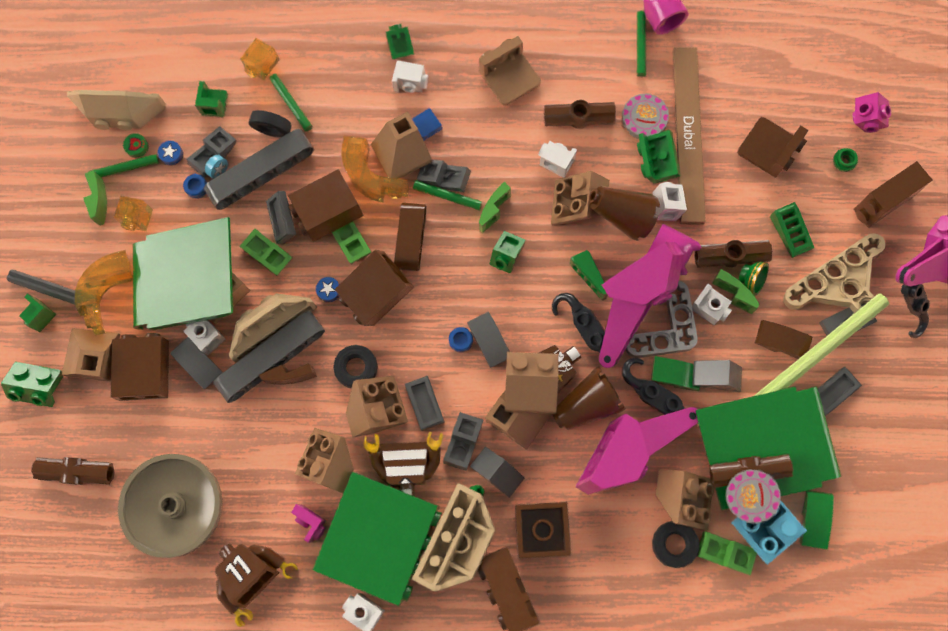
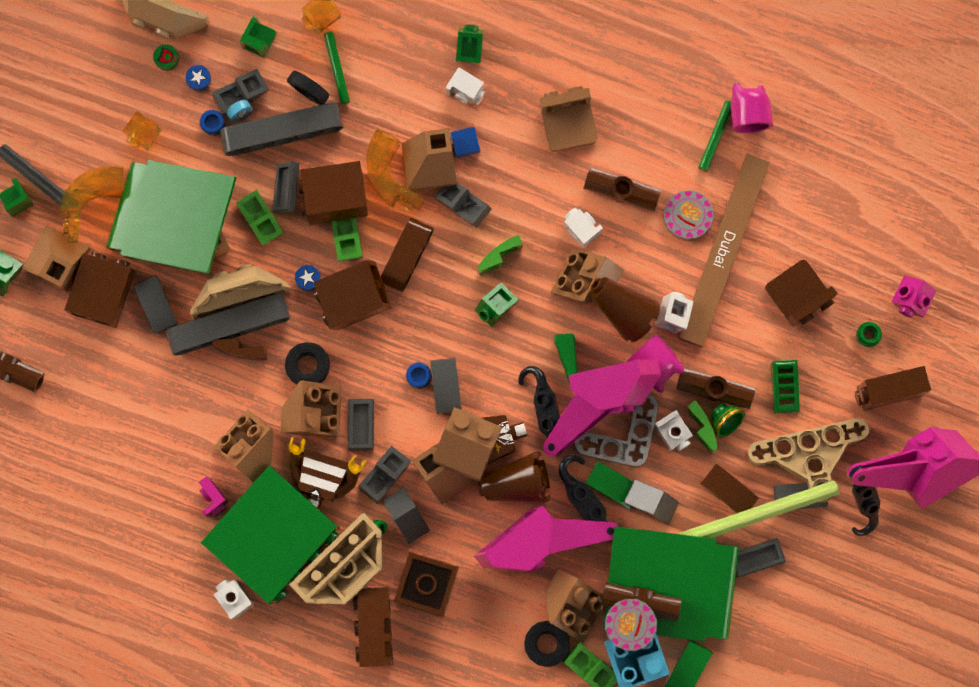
camera: 15 degrees right, 5 degrees up
(97, 201) = (109, 106): bright green slope -> none
(128, 165) = (147, 75): green bar -> none
(170, 506) = (88, 434): dark tan dish -> none
(208, 340) = (173, 287): white brick -> none
(245, 574) = (137, 524): reddish brown torso -> none
(447, 195) = (459, 224): green bar -> none
(658, 156) = (683, 263): green bracket -> none

